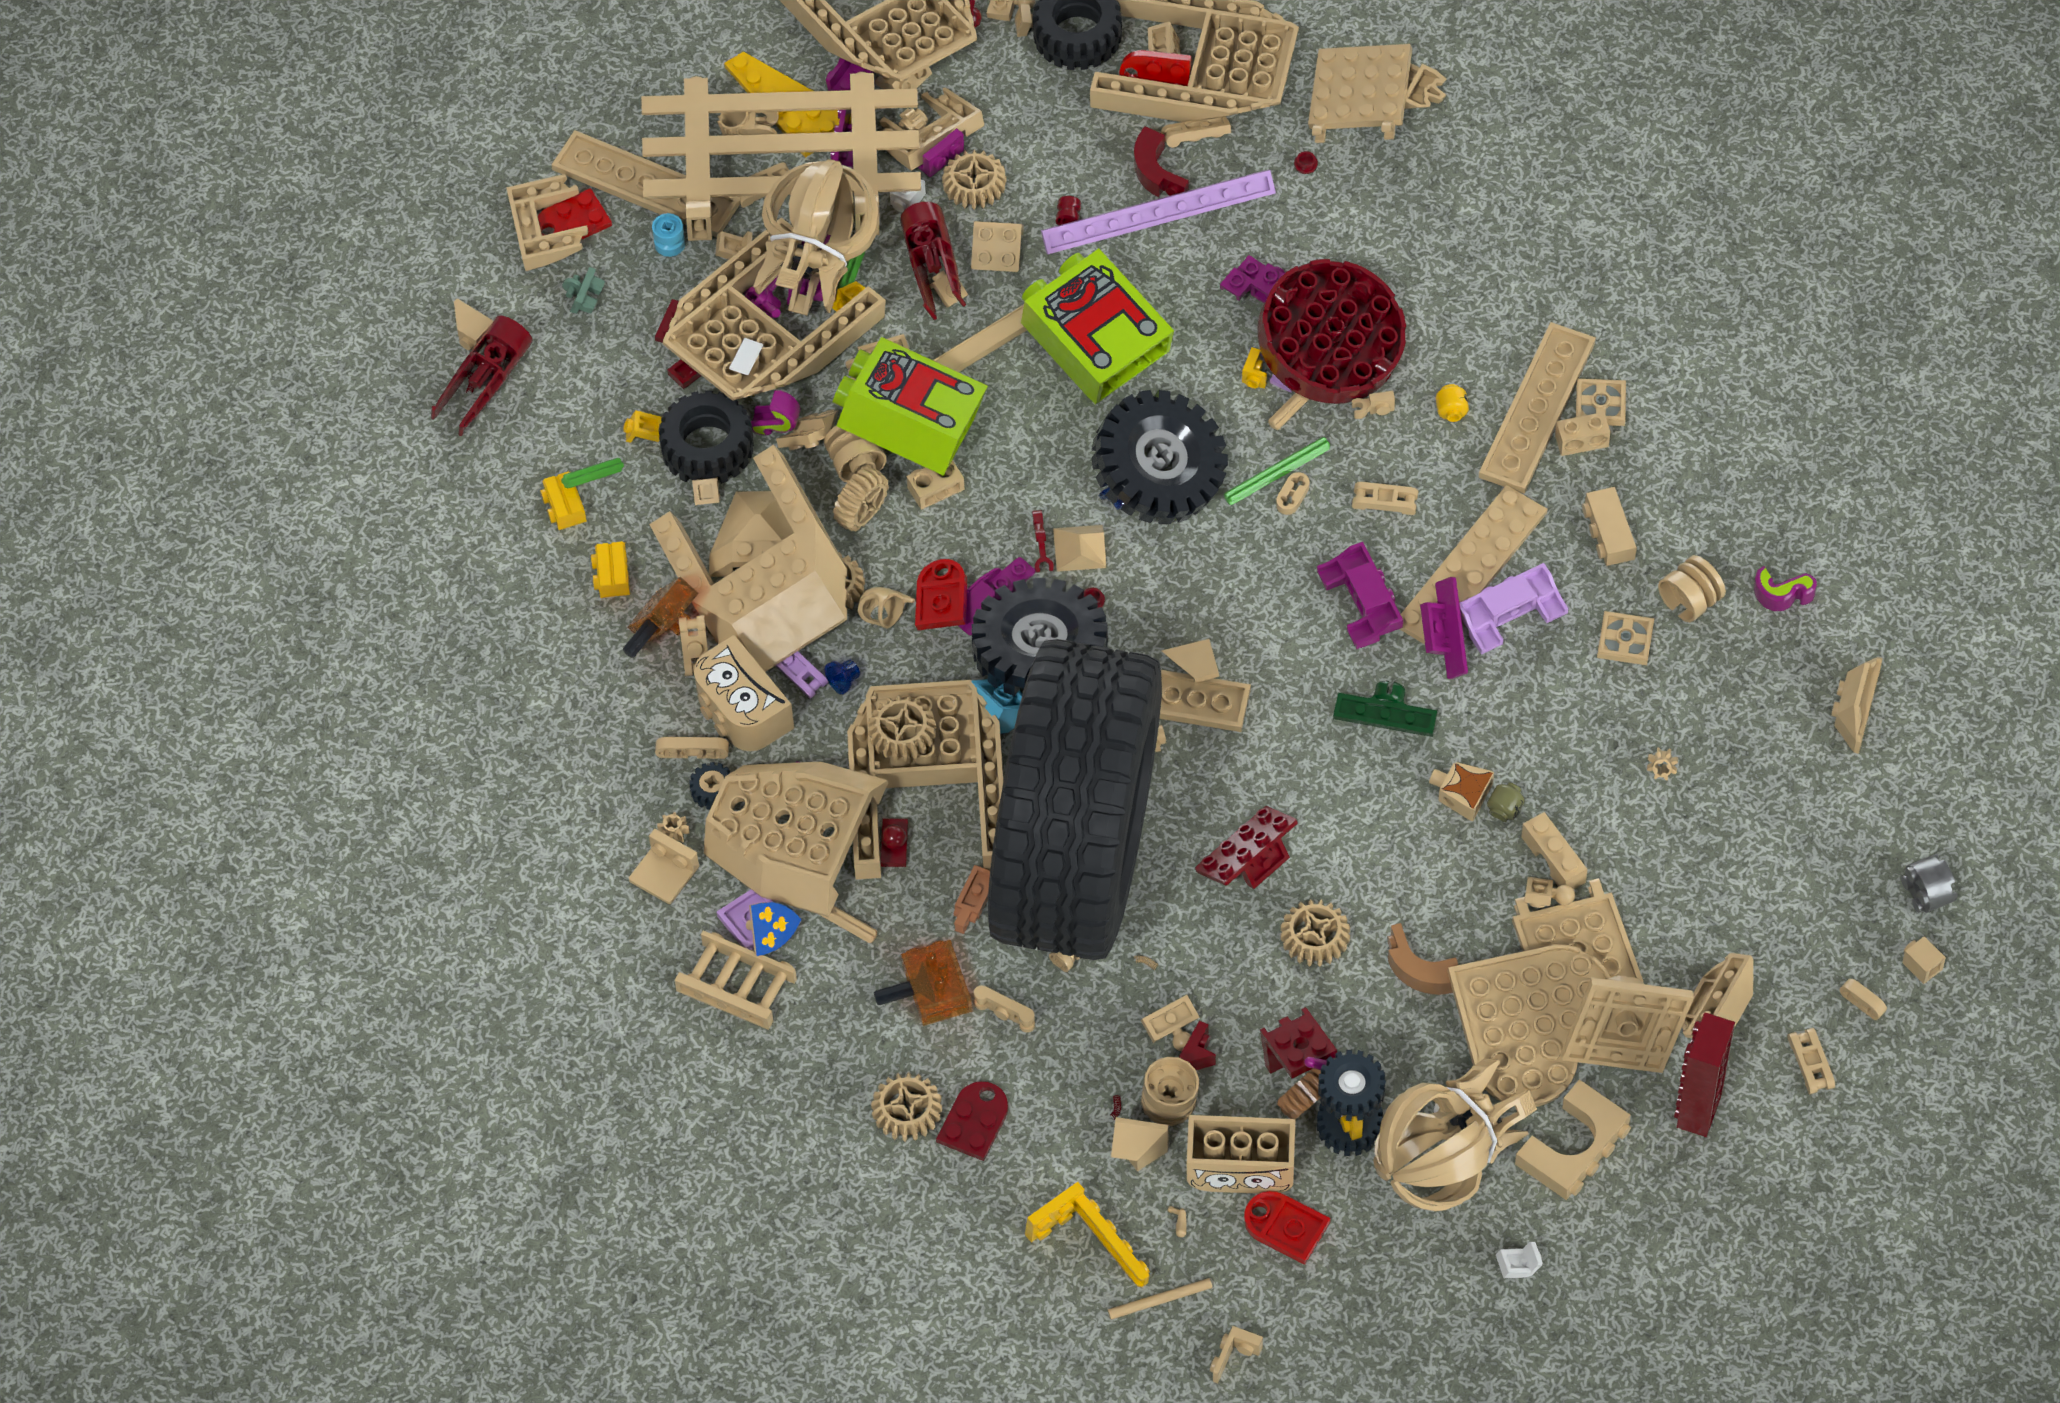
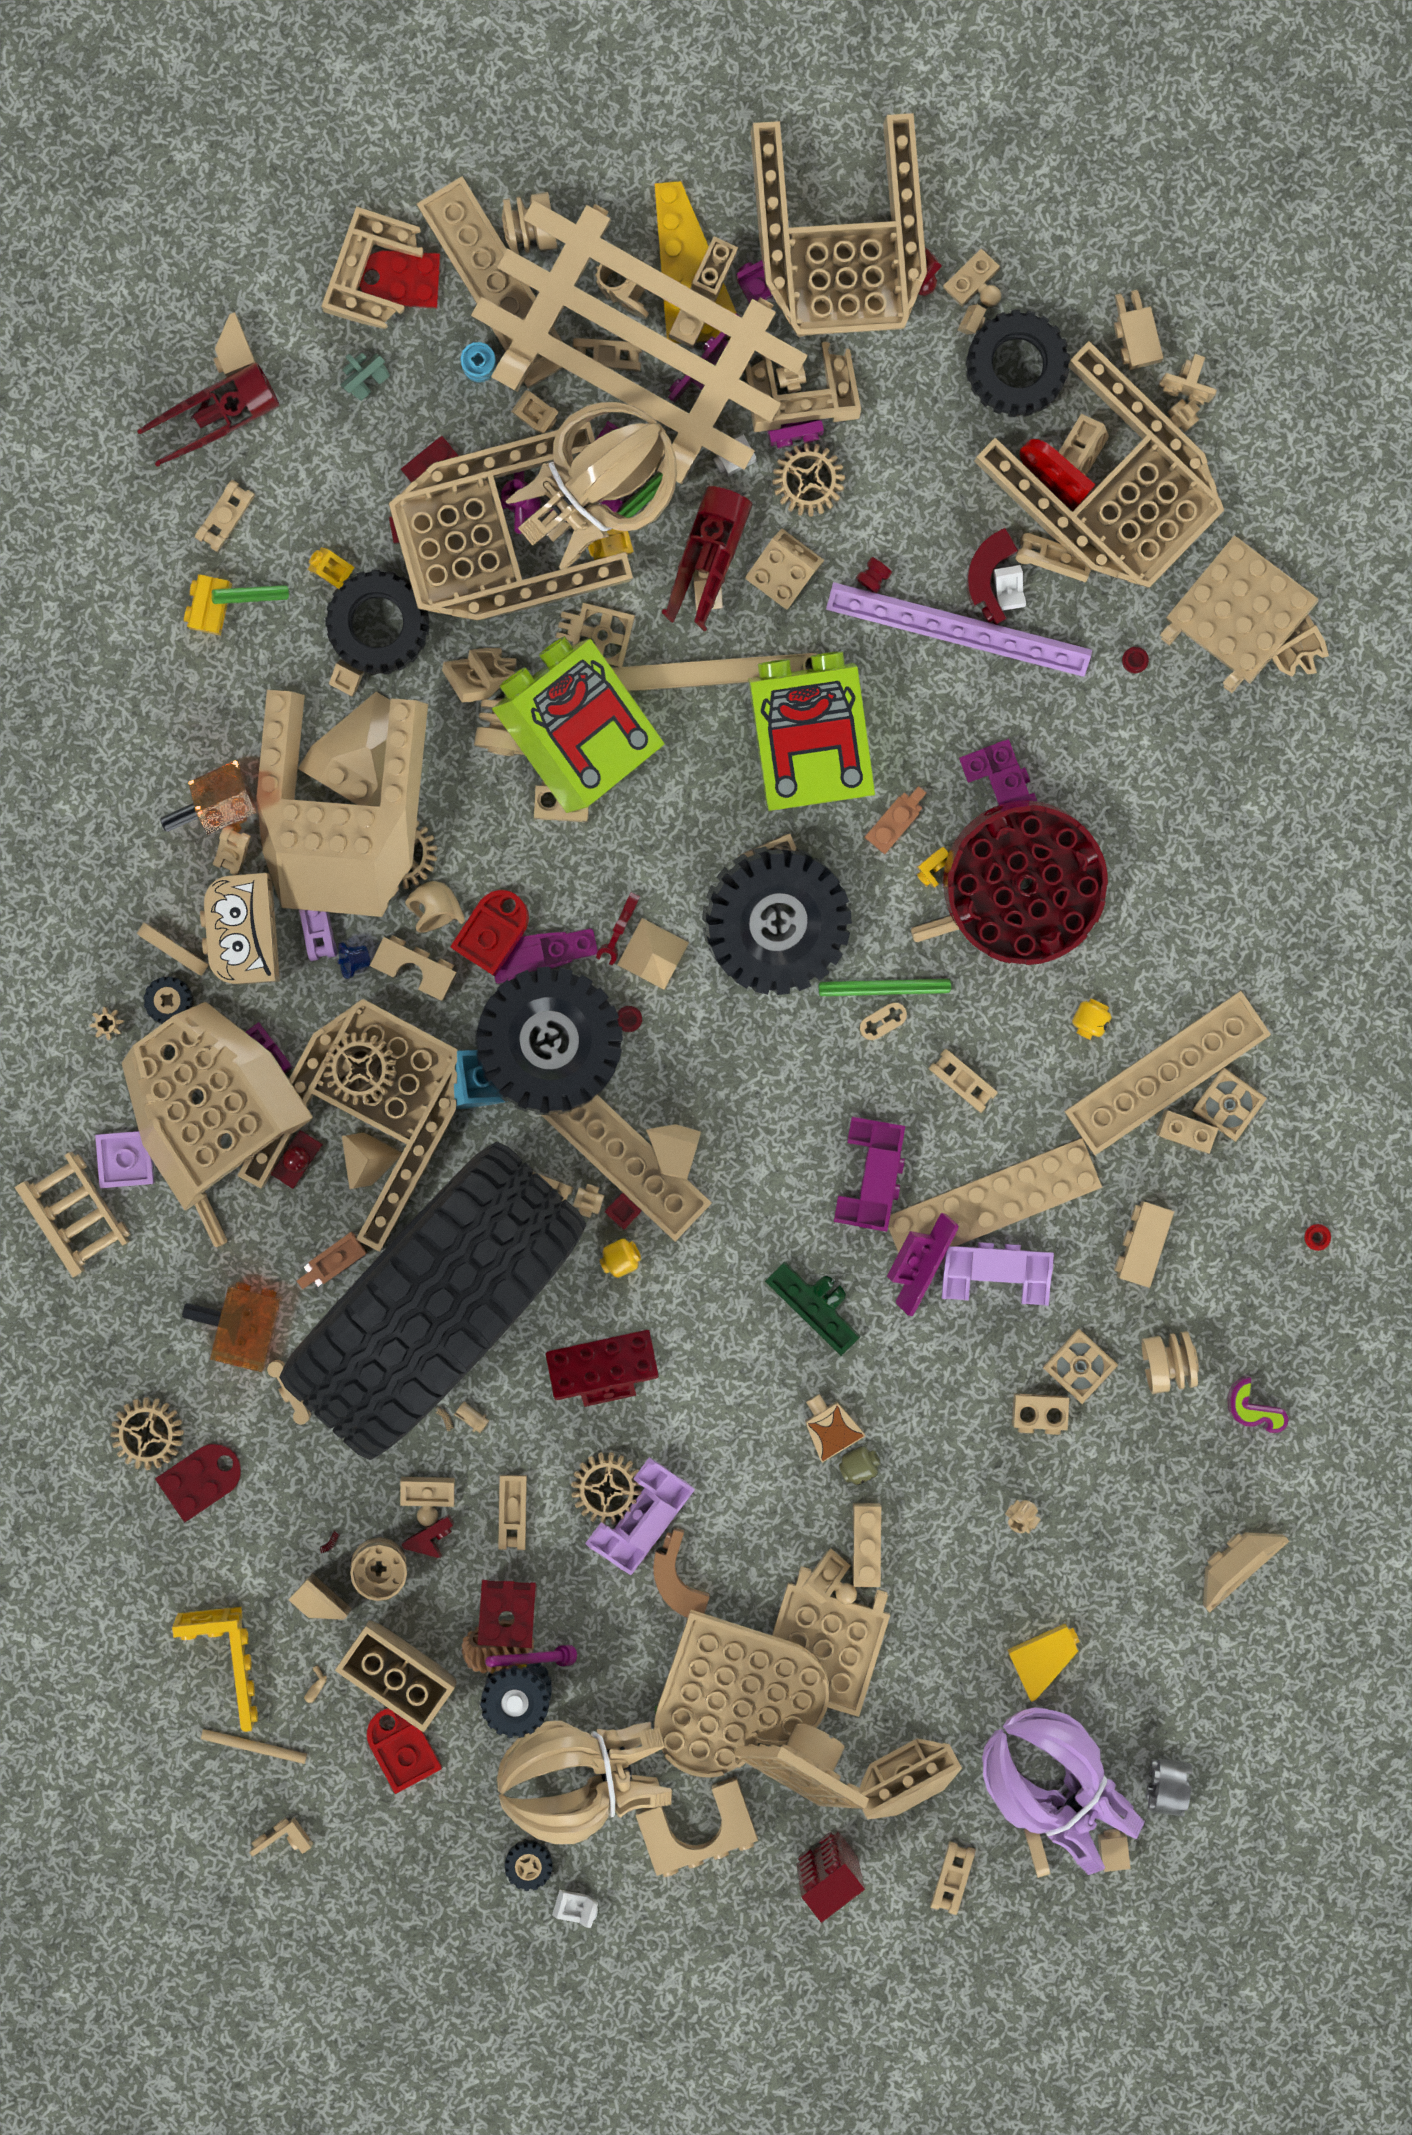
camera: 25 degrees right, 30 degrees up
(536, 439) = (225, 515): none -> tan plate
(611, 568) = (209, 709): yellow brick -> none
(637, 126) = (519, 230): none -> tan wheel
(665, 867) = (74, 1061): tan bracket -> none
(746, 356) = (458, 568): white sticker -> none
(771, 926) = (127, 1191): blue shield -> none
(778, 416) = (455, 640): magenta animal -> none
(807, 81) = (708, 284): none -> tan slope
(860, 498) = (478, 784): tan gear -> none
(916, 649) = (436, 976): none -> tan arch
(952, 809) = (366, 1159): none -> tan slope
(1168, 945) = (472, 1417): none -> tan pin
(1174, 161) = (1009, 587): none -> white bracket
(1184, 731) = (623, 1211): none -> dark red plate
(1203, 359) = (895, 820): none -> nougat hinge
(1206, 762) = (620, 1258): none -> yellow head
(1250, 995) = (512, 1511): none -> tan plate
(1365, 927) = (646, 1522): none -> lavender bracket
(1377, 403) = (1024, 979): tan plate -> none
(1457, 1243) = (524, 1874): none -> black wheel
(1616, 680) = (1041, 1405): none -> tan brick
(1741, 446) = (1326, 1237): none -> red plate
(1756, 856) = (1043, 1658): none -> yellow slope
(1824, 918) = (1049, 1812): none -> lavender piece

